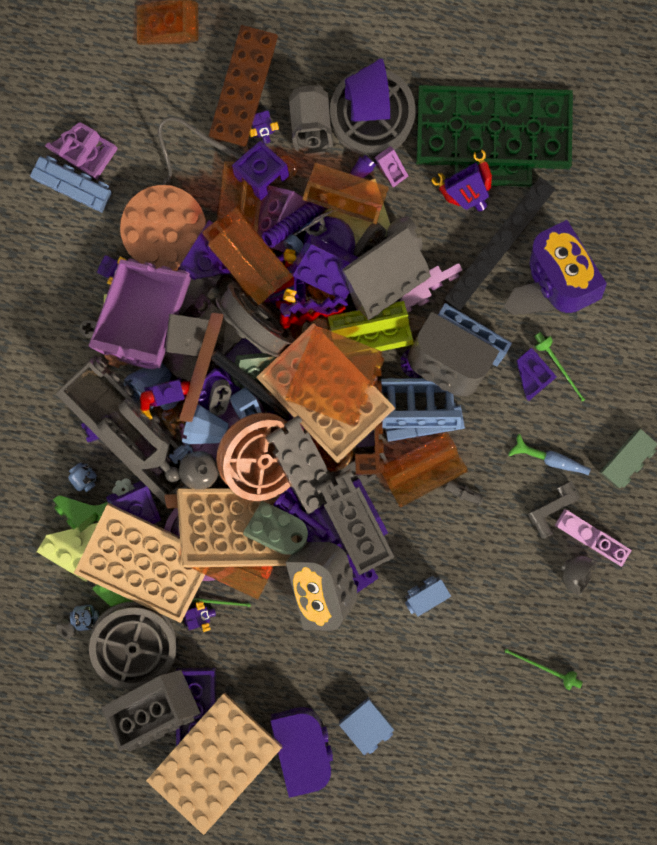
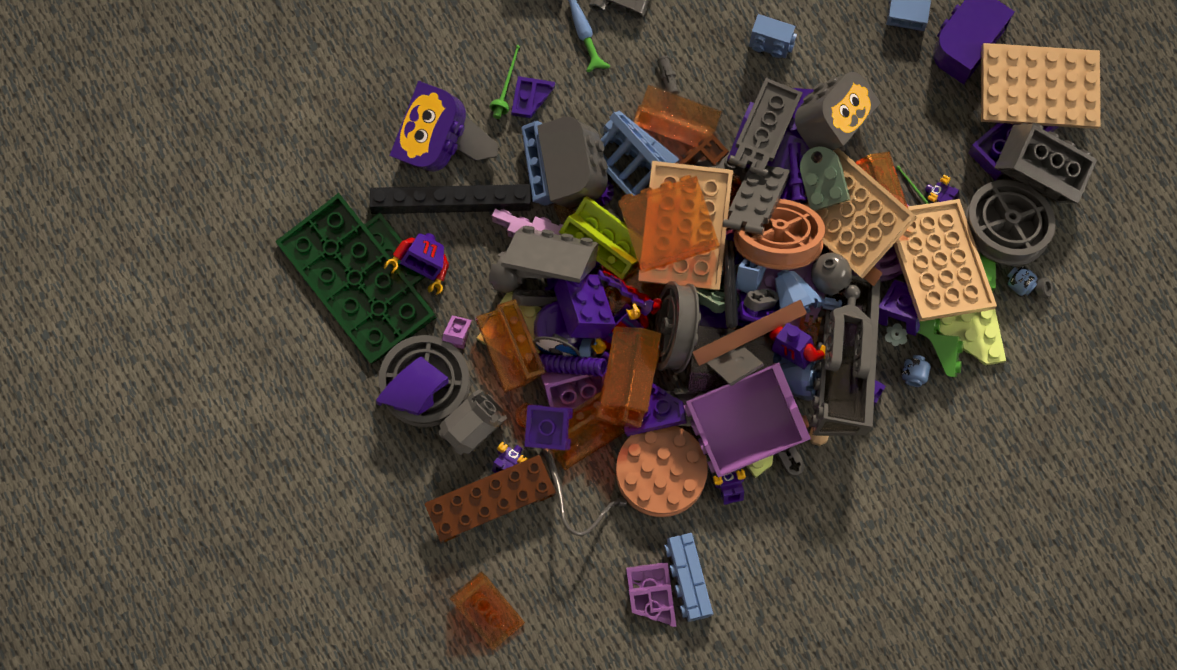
camera: 130 degrees left, 15 degrees down
(363, 167) = (476, 354): dark purple cone -> none

